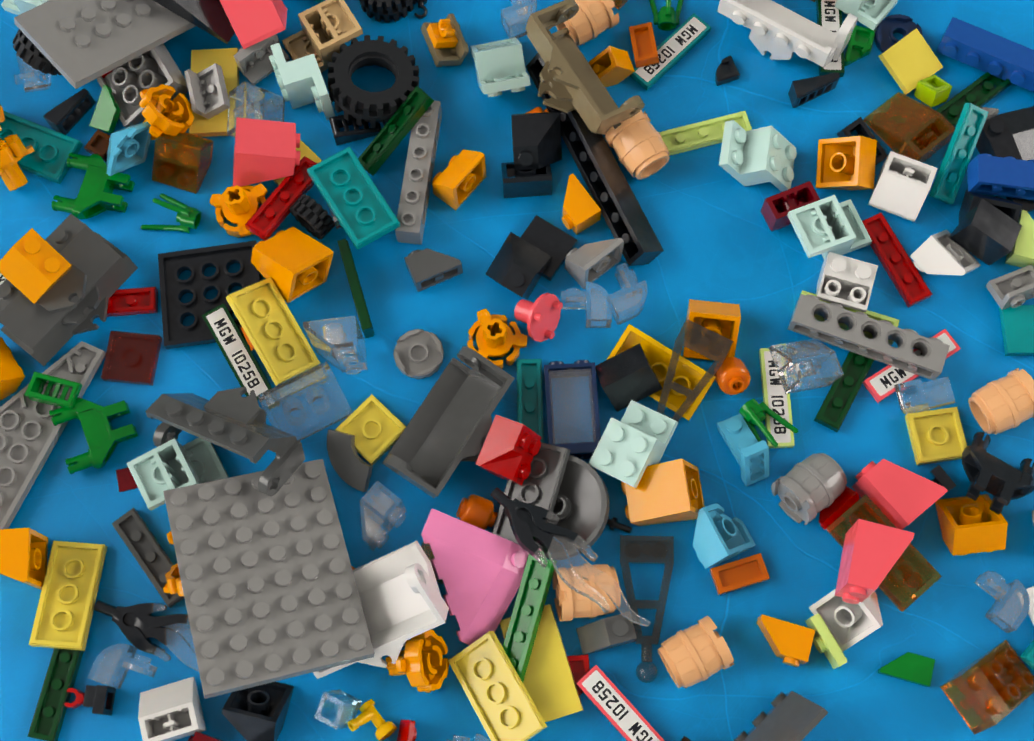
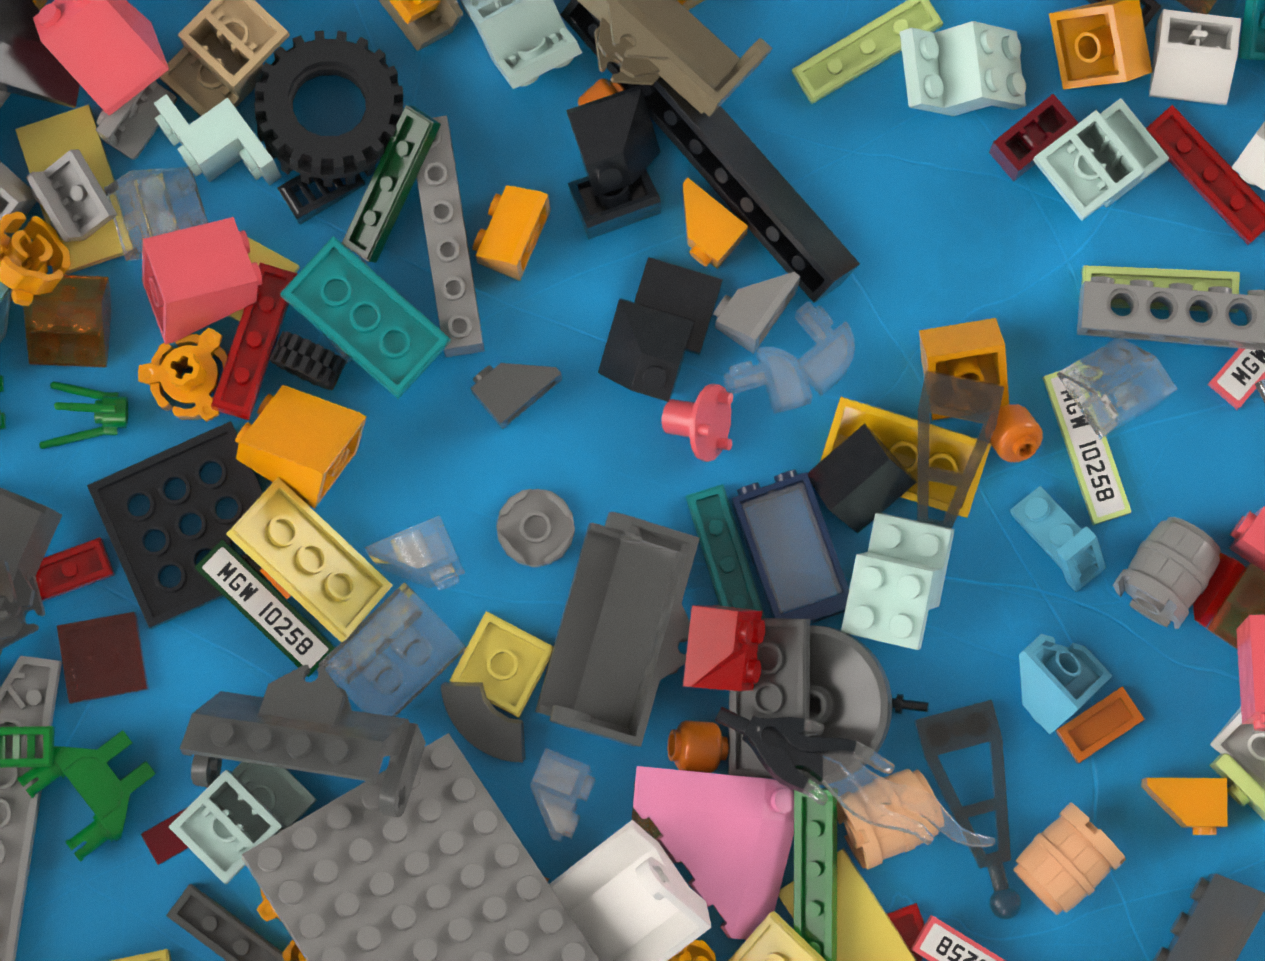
camera: 15 degrees left, 10 degrees up
(355, 287) = (409, 453): dark green tile -> none
(501, 341) = (629, 480): light orange piece -> none
(606, 634) = (932, 868): dark grey slope -> none
(638, 146) = (777, 104): light nougat piece -> none
(665, 494) = (965, 641): light orange slope -> none
(754, 415) = (1061, 482): green plant -> none
(843, 391) = (1184, 407): dark green tile -> none
(846, 281) = (1146, 239): white slope -> none

